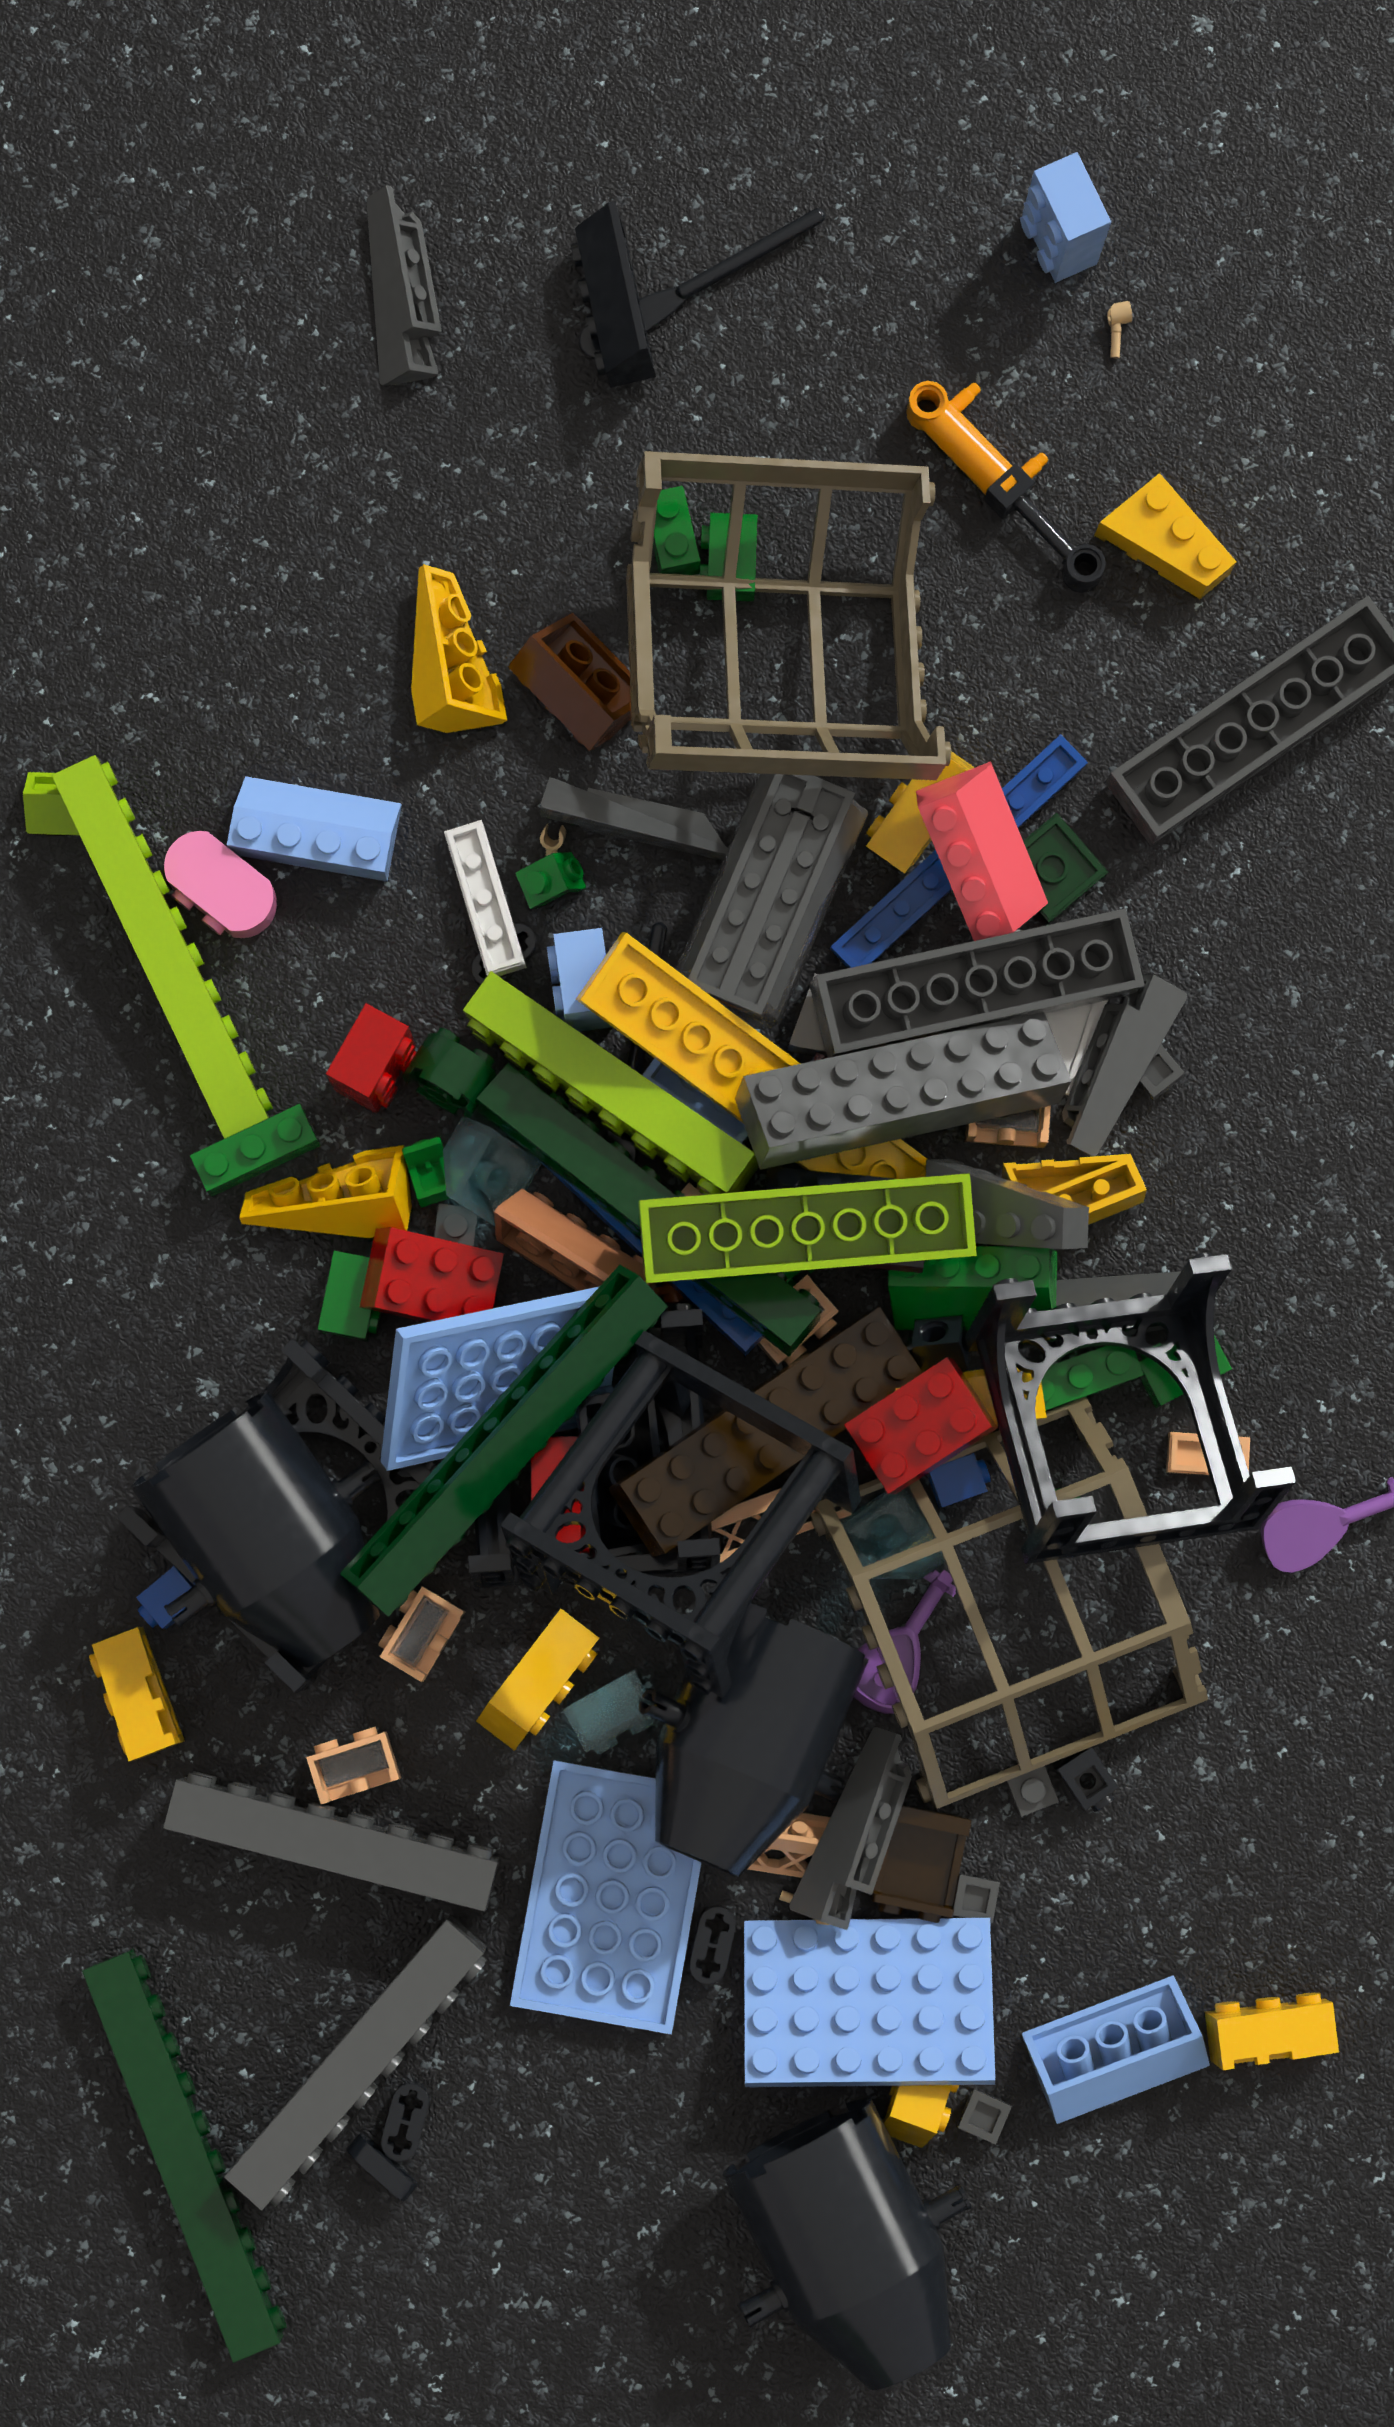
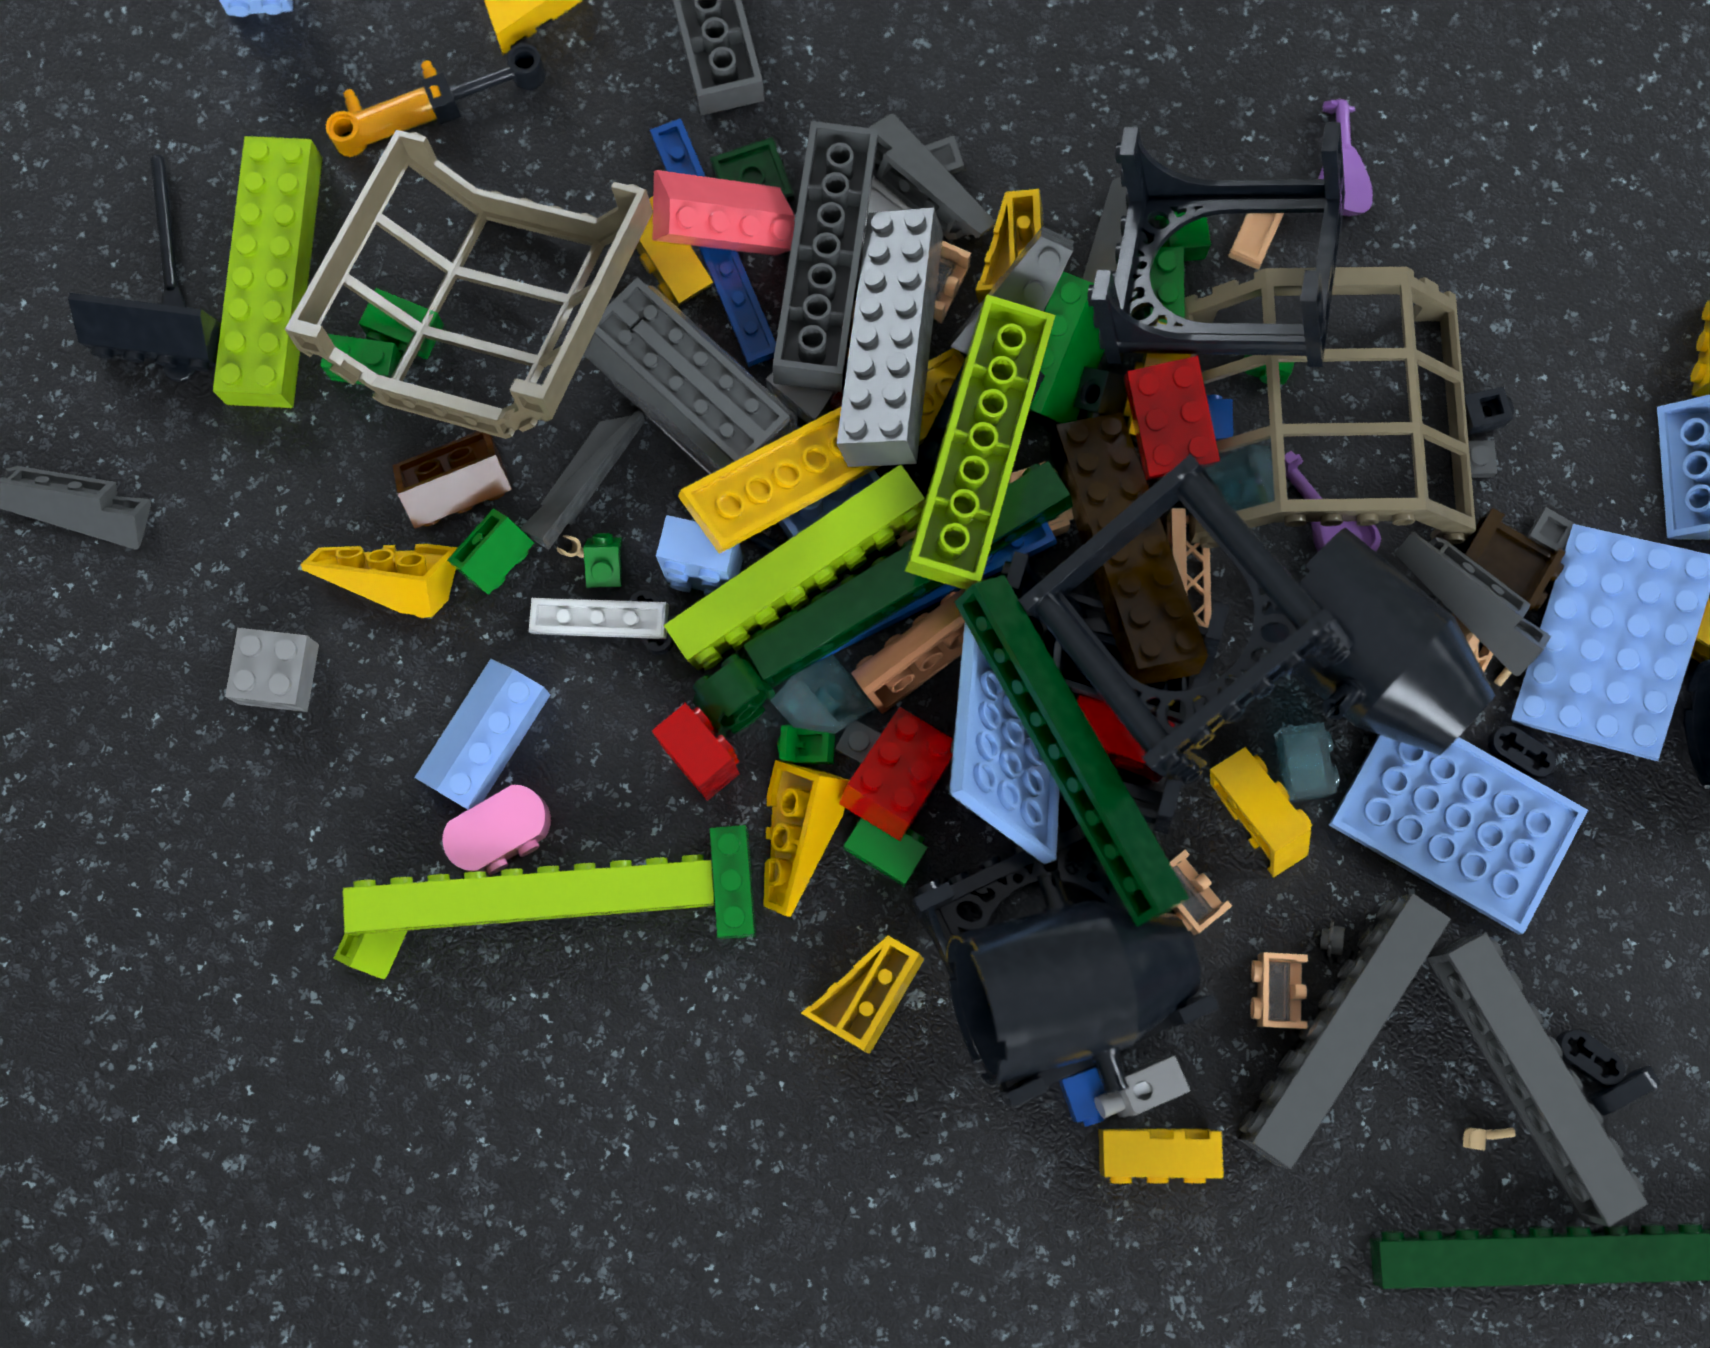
camera: 60 degrees left, 5 degrees down
(188, 1335) = (868, 994): none -> yellow wedge
(205, 1663) = (1149, 1087): none -> light grey torso
(276, 2025) = (1476, 1138): none -> tan hand
(300, 583) = (272, 669): none -> light grey brick
(429, 1805) = (1333, 939): none -> dark grey plate
(512, 757) = (491, 551): none -> green brick
(736, 389) = (267, 271): none -> lime brick

